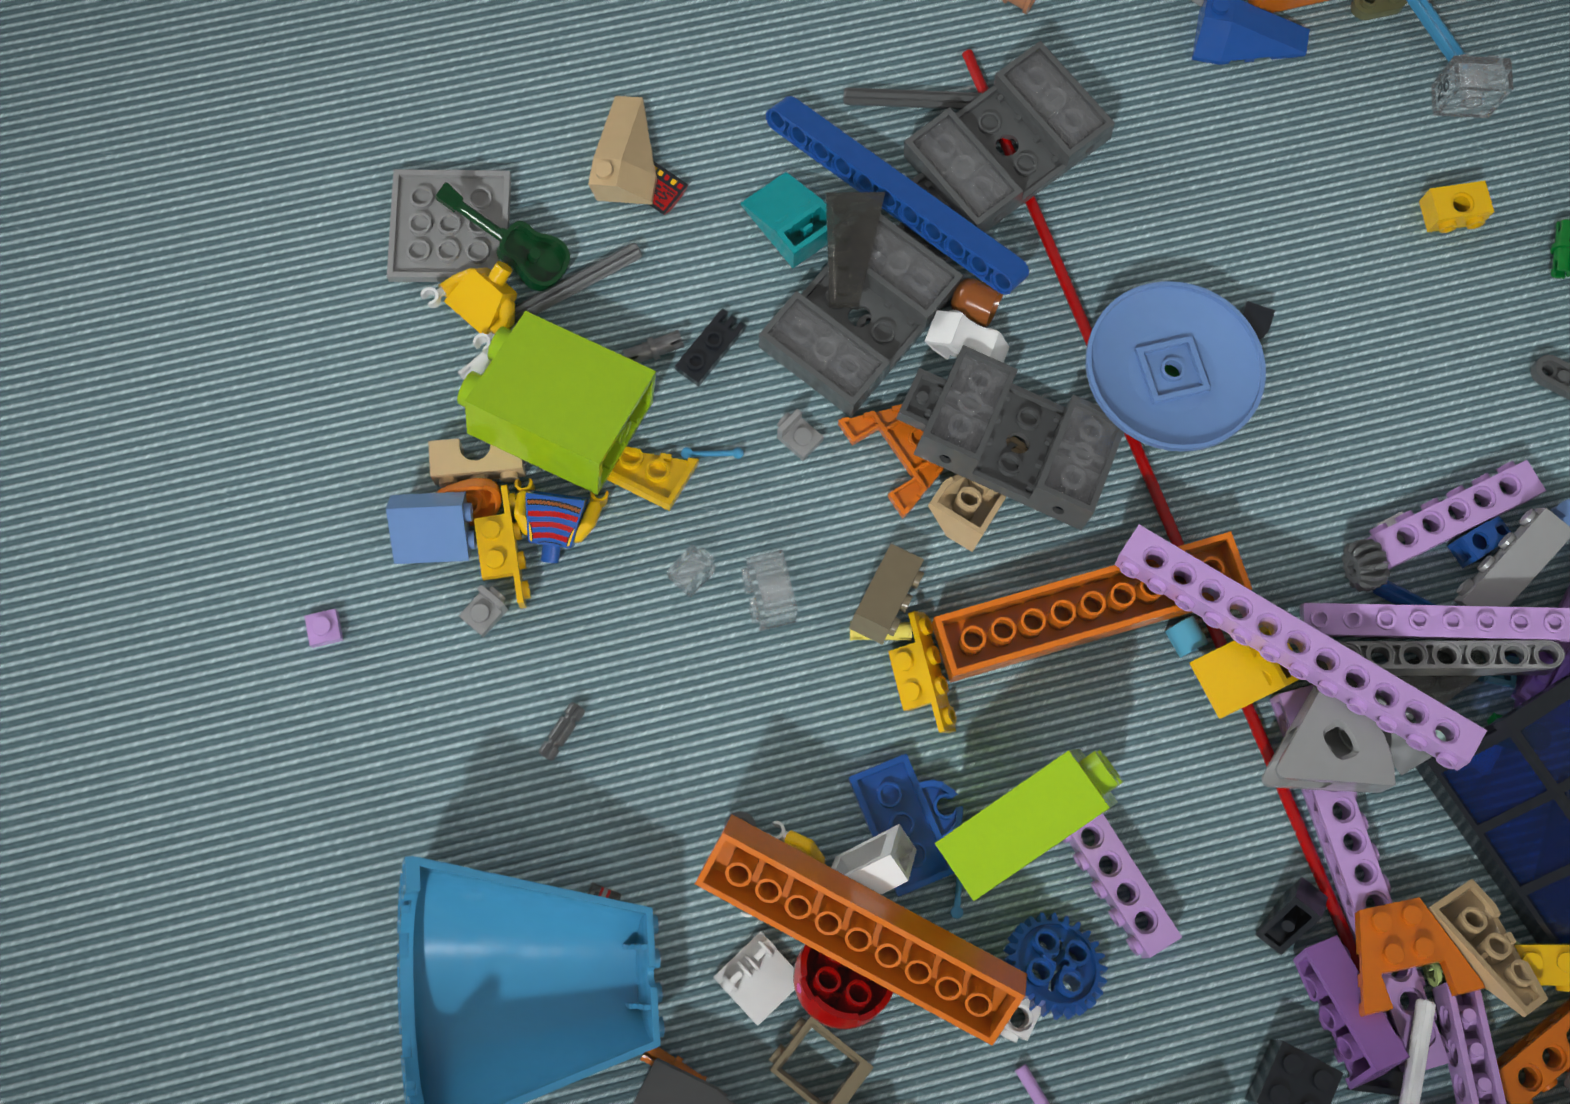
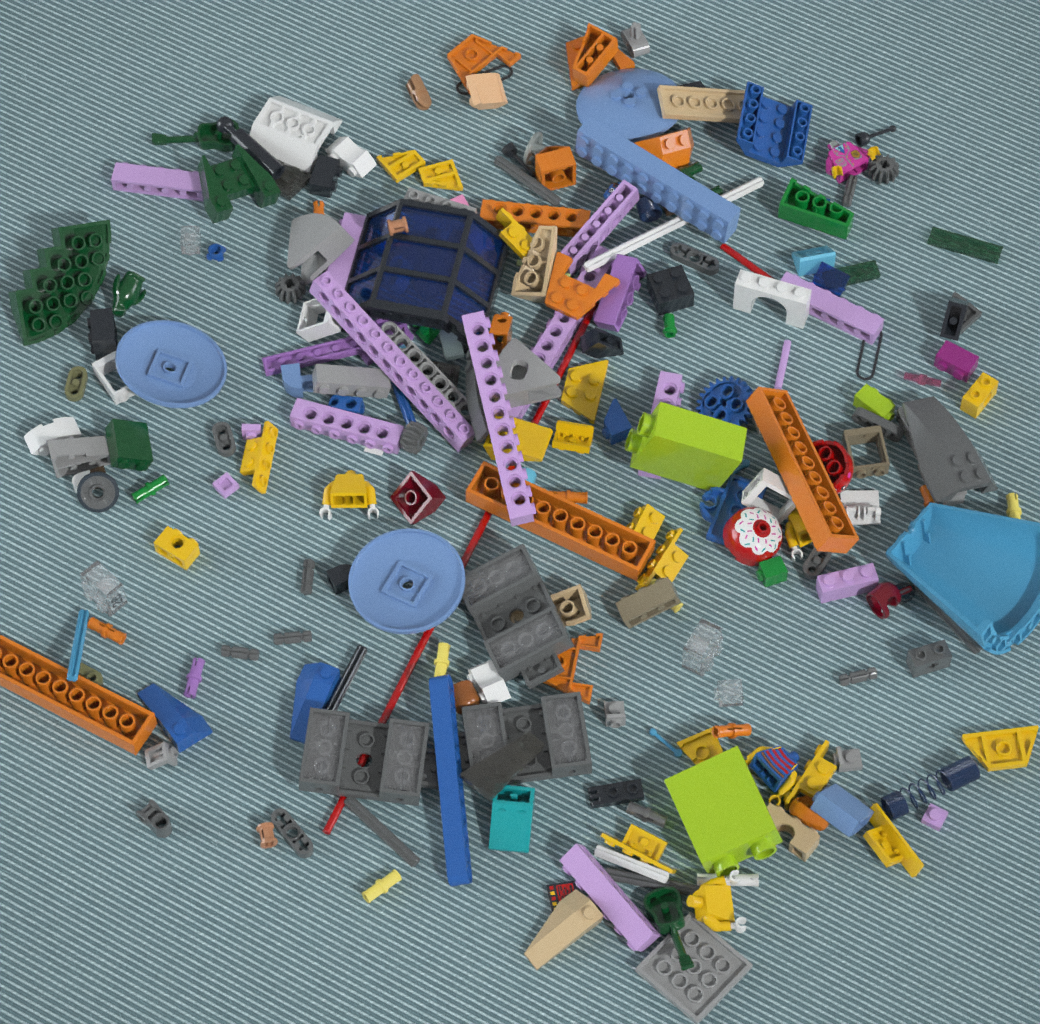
camera: 130 degrees left, 15 degrees down
(306, 788) = (1003, 747): none -> yellow wing
(335, 694) = (953, 776): none -> dark blue piece
(347, 541) = (890, 844): none -> yellow bracket
(491, 827) = (928, 658): none -> dark grey brick
(605, 218) = (609, 897): none -> lavender brick
(616, 276) = (631, 864): none -> white axle
(617, 863) = (881, 596): none -> dark red helmet
(623, 303) = (642, 844): none -> yellow bracket
(645, 520) = (731, 730): none -> orange pin
(679, 843) = (846, 583): none -> lavender brick
(784, 777) = (772, 571): none -> green brick
(853, 43) = (381, 886): none -> light yellow pin
(865, 794) = (752, 535): none -> cylinder
(992, 702) = (646, 521): none -> yellow bracket
(1009, 16) = (291, 824): none -> dark grey beam
(1043, 327) = (442, 662): none -> light yellow pin
(1116, 659) = (576, 497): none -> orange pin
(1117, 214) = (346, 678): none -> black axle
(1135, 178) = (312, 690): none -> blue wedge
(1162, 813) = (616, 424): none -> blue slope
(1190, 743) = (573, 437): none -> yellow bracket
(1227, 220) = (292, 637): none -> dark grey axle
(1241, 1030) = (669, 325): none -> green pin
(1248, 834) = (584, 388): none -> yellow wing
(1260, 157) = (240, 652): none -> dark grey axle
(1273, 89) = (194, 678): none -> medium lavender pin
(1278, 498) = (417, 497): none -> dark red slope
(1289, 300) = (307, 576): none -> dark grey axle
(1356, 432) = (349, 491): none -> yellow torso
(1415, 60) = (106, 630): none -> orange pin
(1424, 807) = (501, 326): none -> orange torso
(1493, 324) = (225, 485): none -> lavender plate
(1498, 391) = (259, 456): none -> yellow bracket
(1542, 410) = (251, 431): none -> lavender plate

